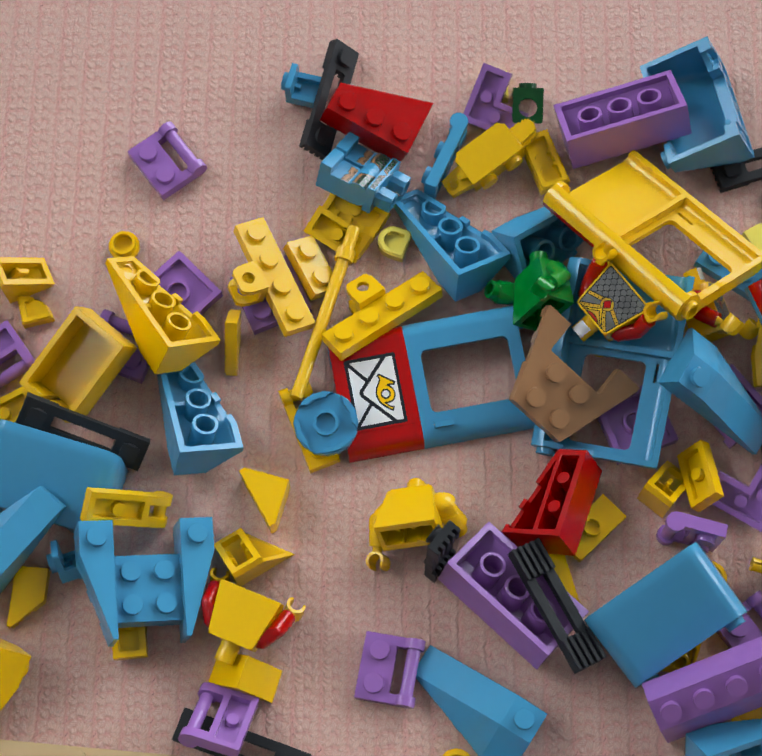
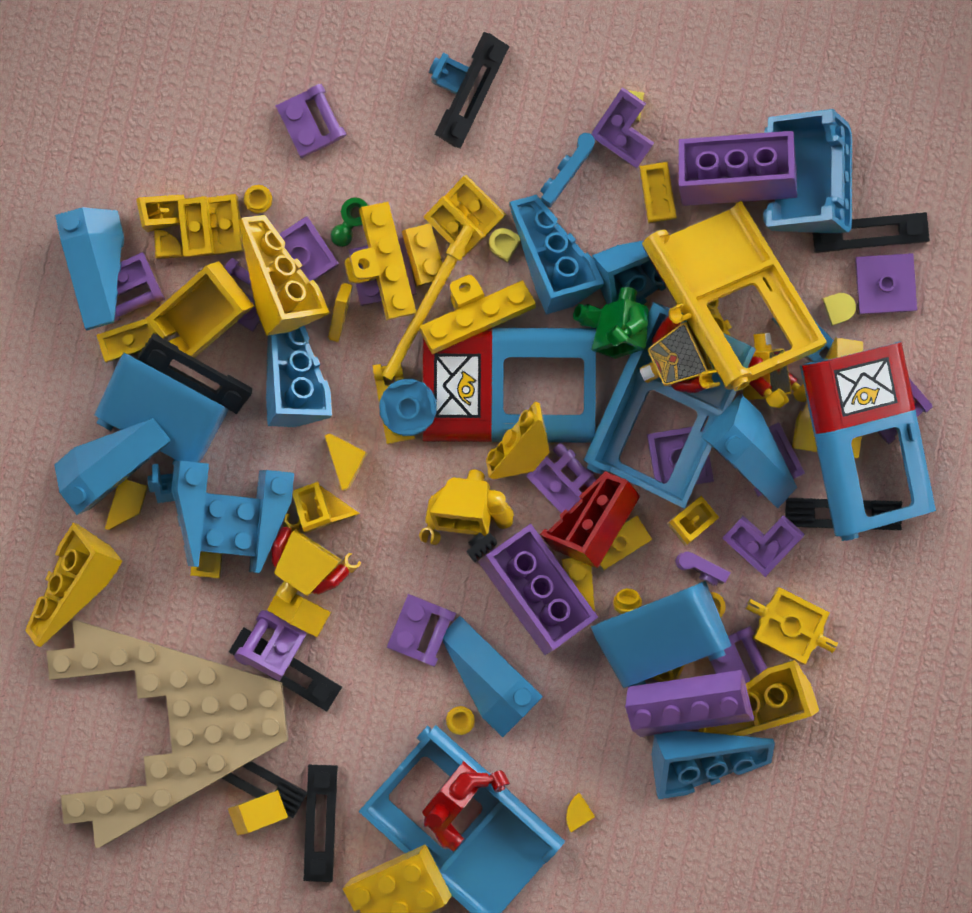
camera: 15 degrees right, 15 degrees up
(77, 281) = (210, 225): none -> yellow slope
(126, 507) = (222, 450): yellow plate -> none
(220, 263) = (342, 234): none -> green plate
(362, 176) = (486, 177): dark azure hips -> none
(379, 118) = (511, 125): red wedge -> none
(460, 440) = (521, 446): none -> yellow slope
(489, 156) = (606, 180): yellow hinge -> none
(504, 477) = (555, 485): none -> medium lavender plate
(523, 92) = (654, 123): dark green bracket -> none
(554, 393) = (613, 425): medium nougat wing -> none
(579, 649) = (583, 649): black container -> none
(613, 586) = (627, 600): none -> yellow plate
(700, 475) = (723, 518): yellow plate -> none

